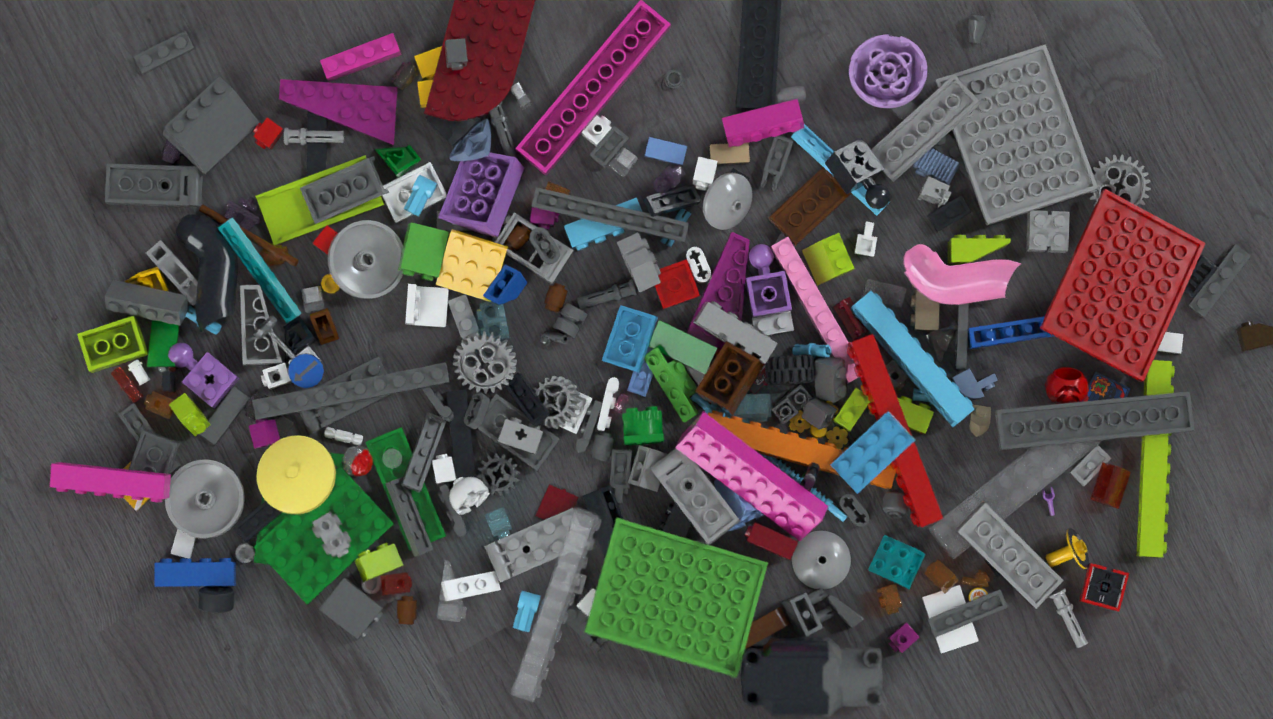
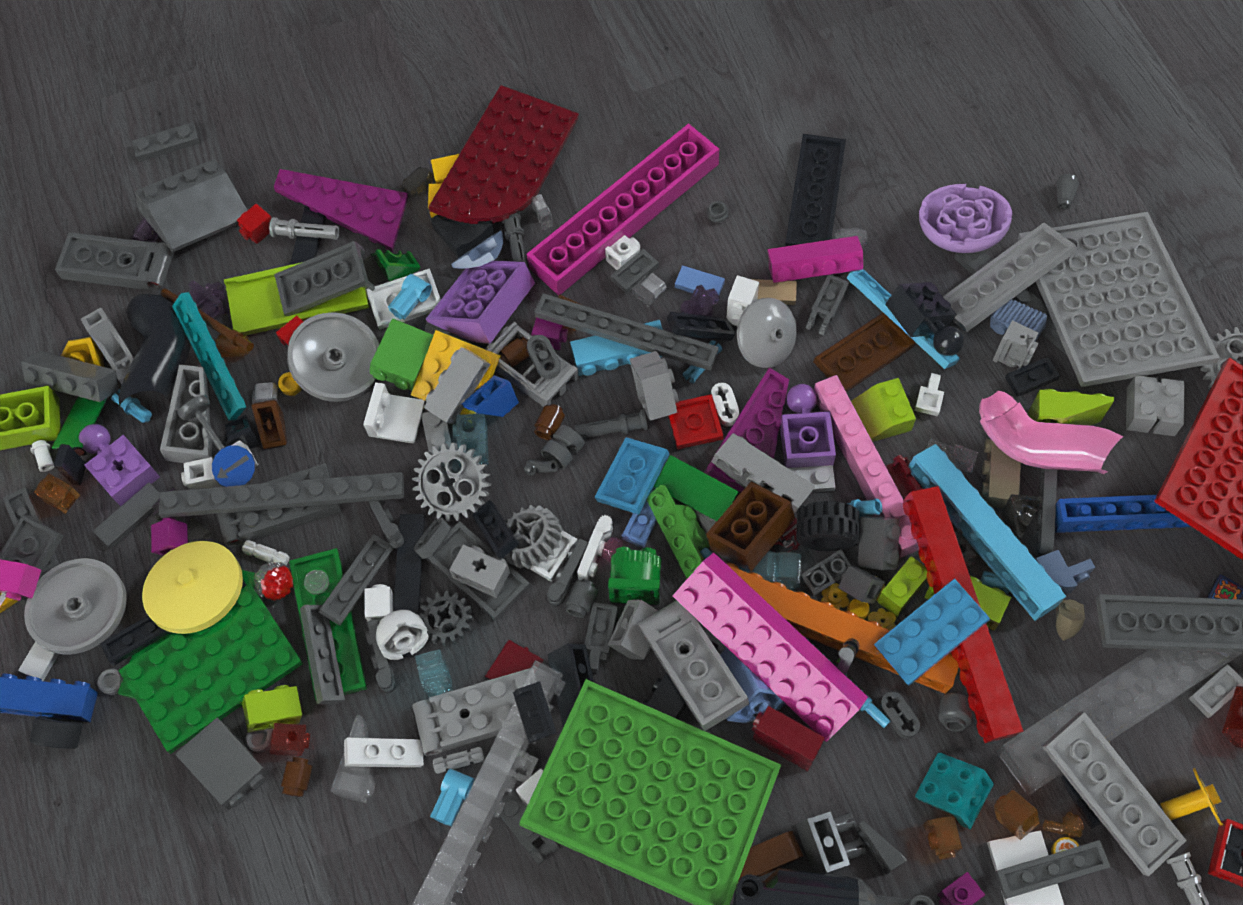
camera: 15 degrees right, 20 degrees down
(126, 384) = (25, 468): clear red axle -> none
(189, 414) = (83, 503): lime brick -> none
(334, 539) = (216, 661): light grey brick -> none
(360, 57) = (373, 159): dark pink brick -> none
(456, 54) = (474, 150): dark grey brick -> none
(476, 279) = (456, 385): none -> light grey brick
(526, 582) = (458, 760): none -> light grey axle
(582, 549) = (534, 712): none -> black hinge
(806, 560) = (843, 791): light grey dish -> none
(1049, 498) = (1163, 729): medium lavender hand -> none
(1066, 386) = (1185, 581): red piece -> none

